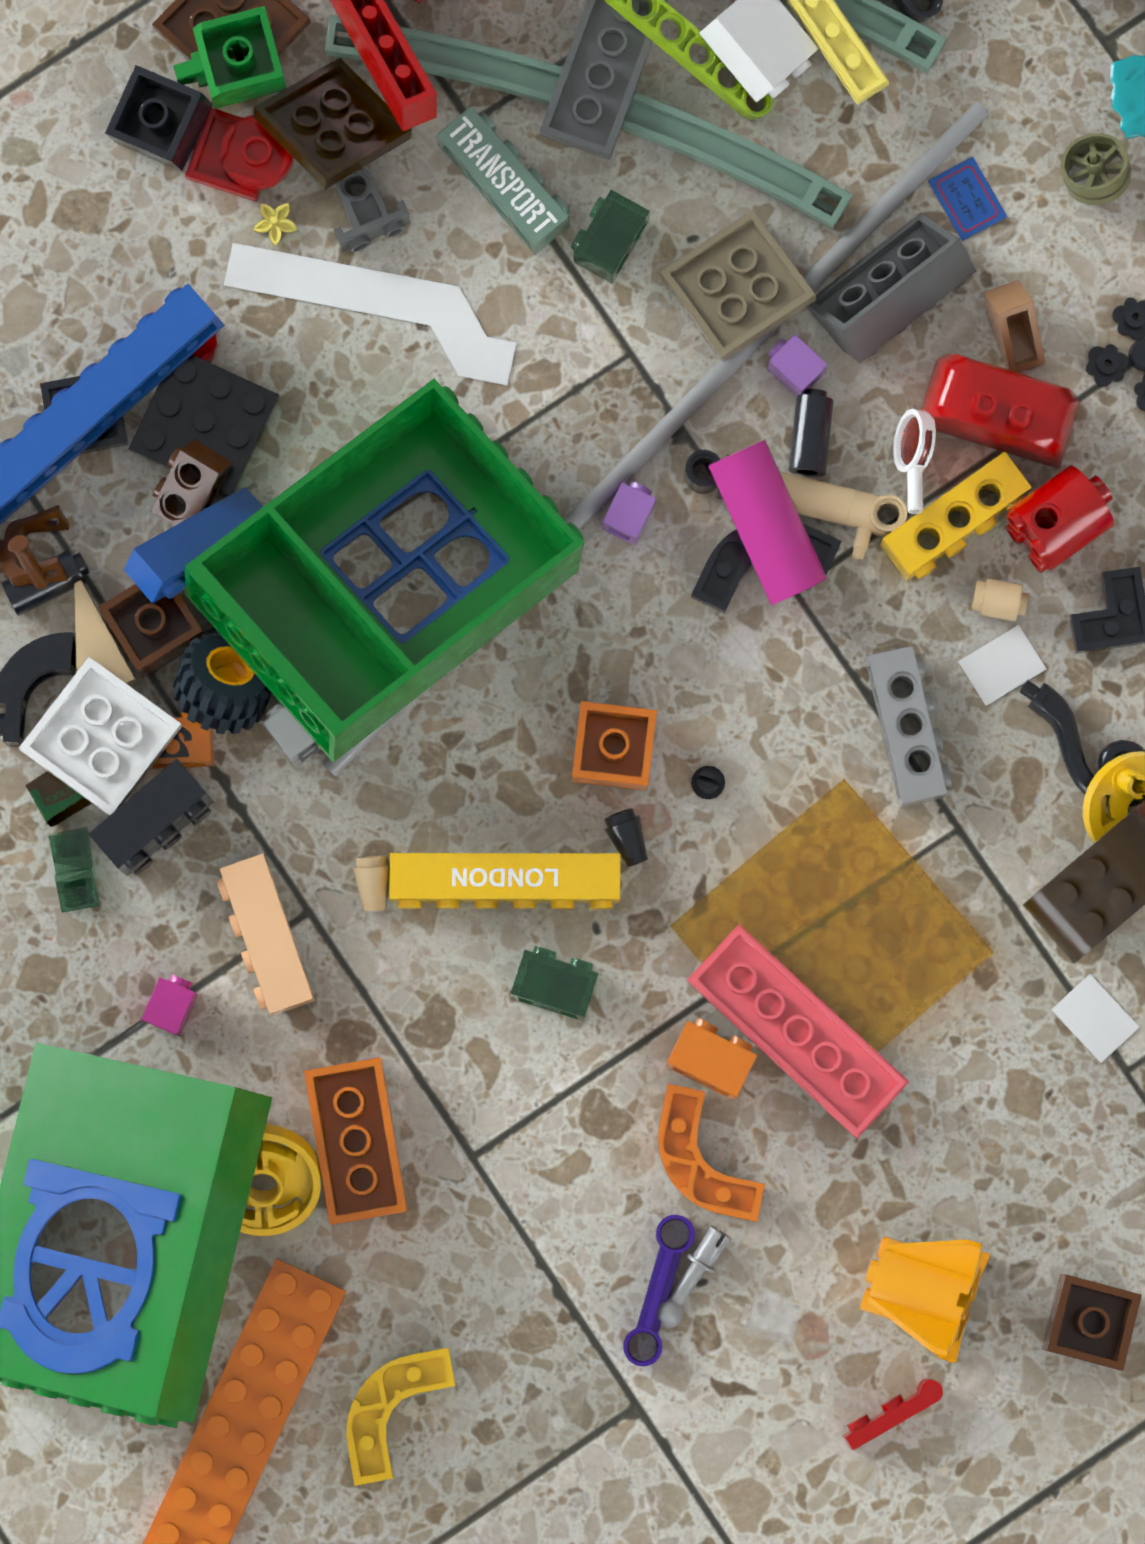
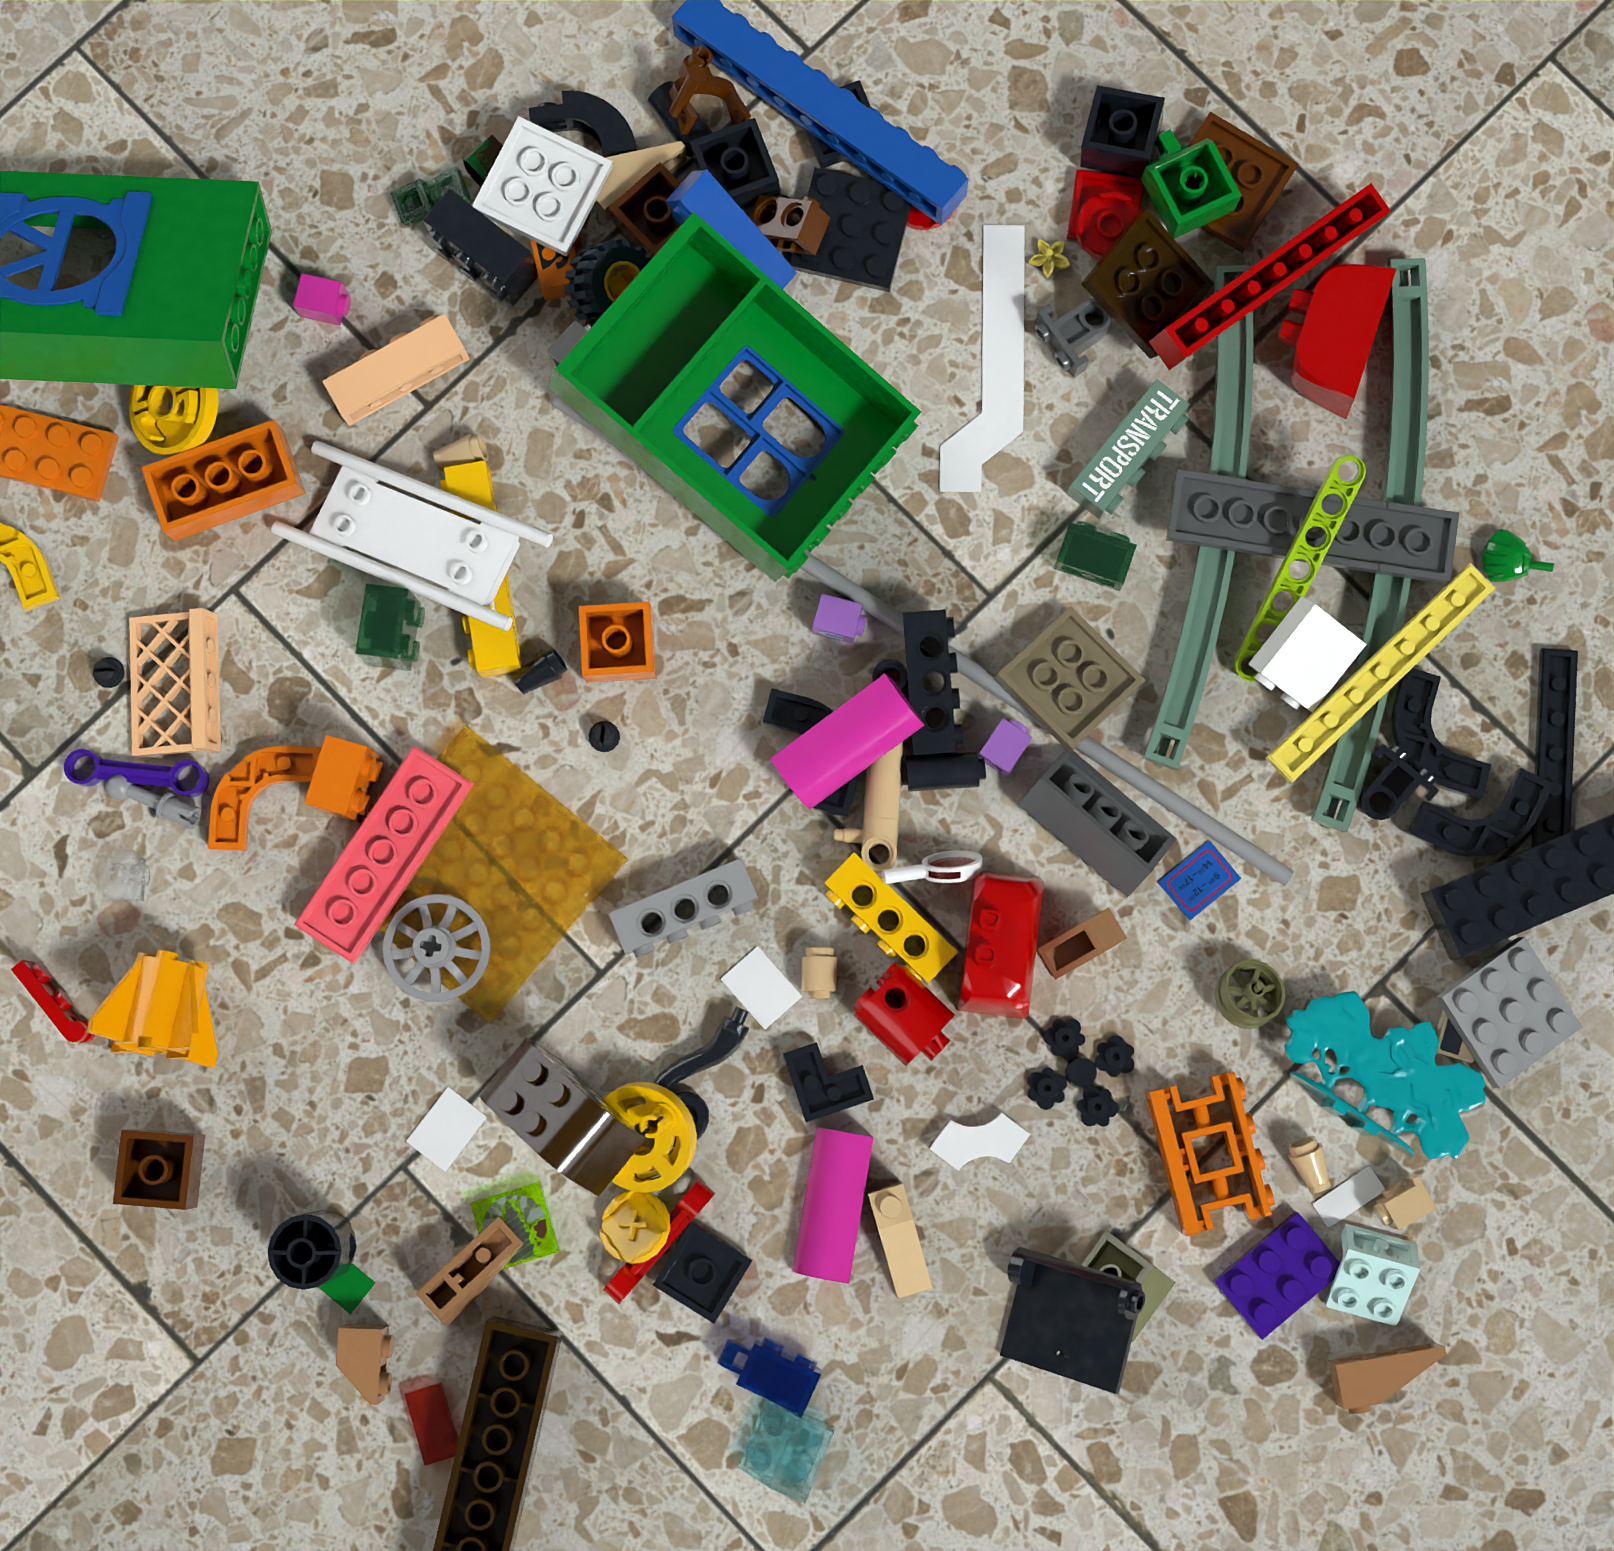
camera: 85 degrees right, 0 degrees up
(110, 528) = (738, 162): none -> black brick
(460, 941) = (414, 536): none -> white piece
(541, 1306) = (108, 672): none -> black piece
(574, 1202) = (203, 688): none -> light nougat fence
(658, 430) = (916, 628): none -> black brick
(906, 992) = (436, 947): none -> light grey wheel

